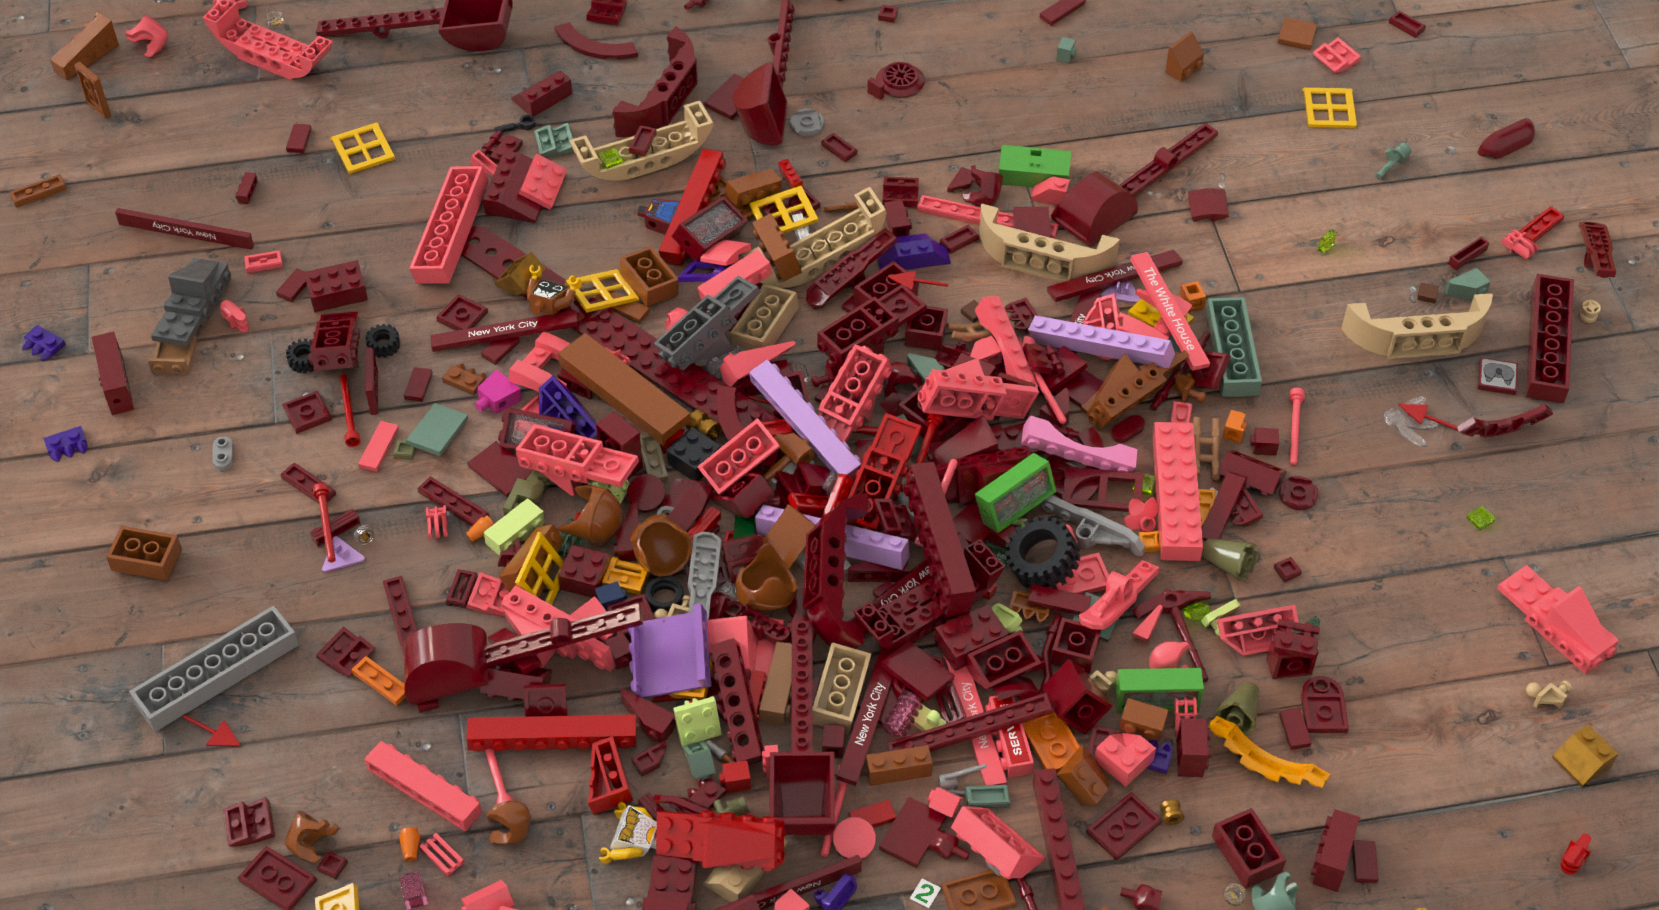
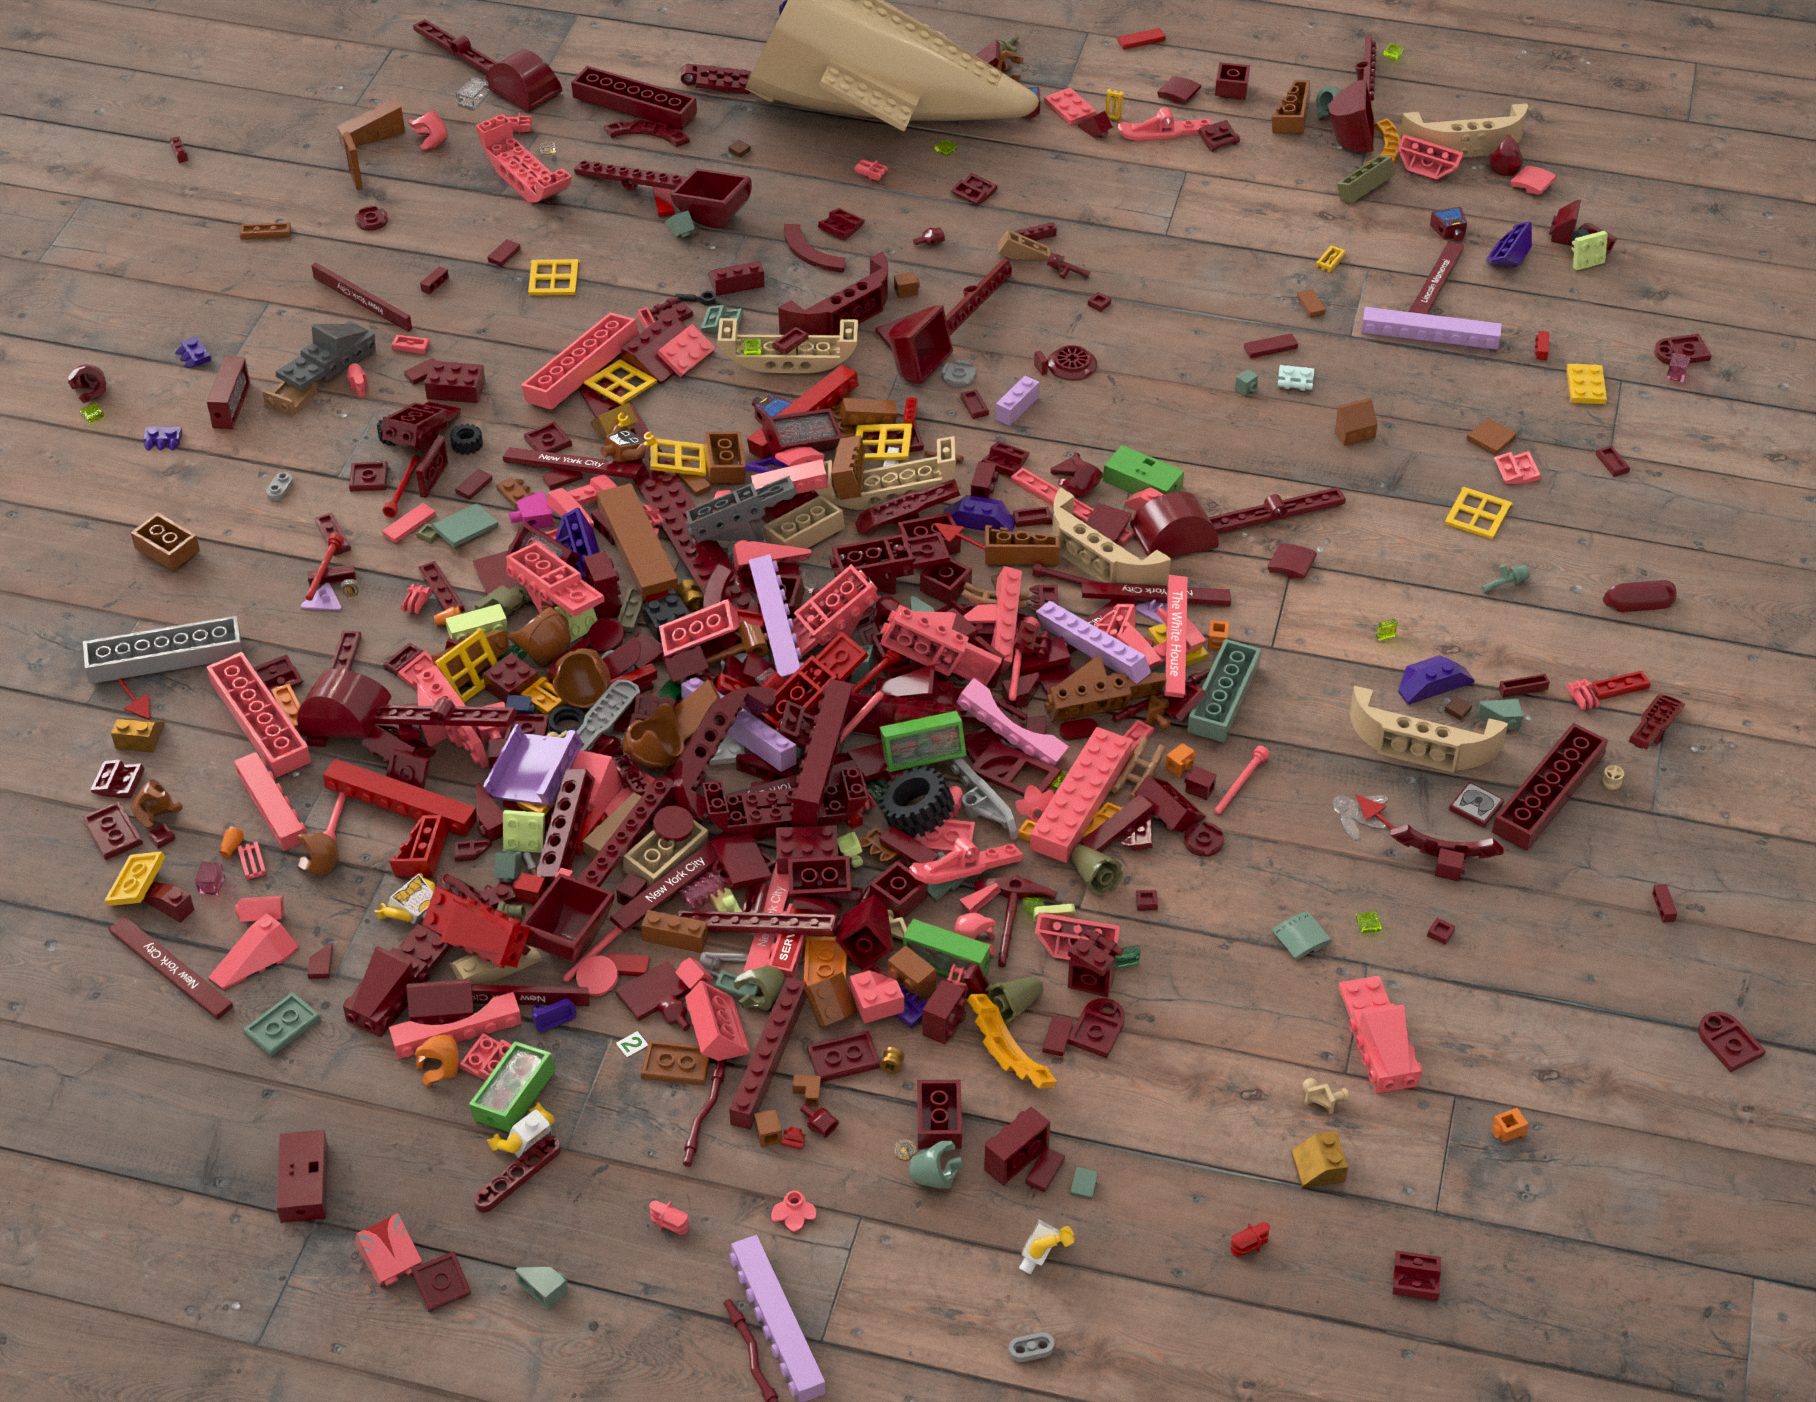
camera: 25 degrees right, 5 degrees down
(140, 144) = (371, 218): none -> dark red tile
(240, 766) = (136, 734): none -> pearl gold slope
(356, 700) = (258, 715): none -> coral brick
(424, 39) = (663, 202): none -> red tile
(457, 56) = (680, 224): none -> sand green slope
(479, 229) = (634, 391): none -> yellow window
(706, 51) = (906, 285): none -> dark orange brick
(839, 660) = (673, 823): none -> dark red tile
(878, 132) = (1017, 400): none -> lavender brick
(971, 273) = (1020, 547): none -> dark orange wedge
(1001, 288) = (1041, 570): none -> dark red piece
(1019, 778) = (768, 979): none -> olive piece
(1102, 32) = (1295, 377): none -> light aqua plate
(1115, 868) = (809, 1086): none -> dark orange piece
(1204, 707) = (976, 980): none -> dark red tile
(1390, 273) = (1432, 678): none -> dark purple wedge
(1406, 860) = (1084, 1182): none -> sand green slope
(1436, 552) = (1301, 935): none -> sand green slope
(1514, 440) = (1450, 864): none -> dark red brick
(1543, 503) = (1441, 931): none -> dark red tile

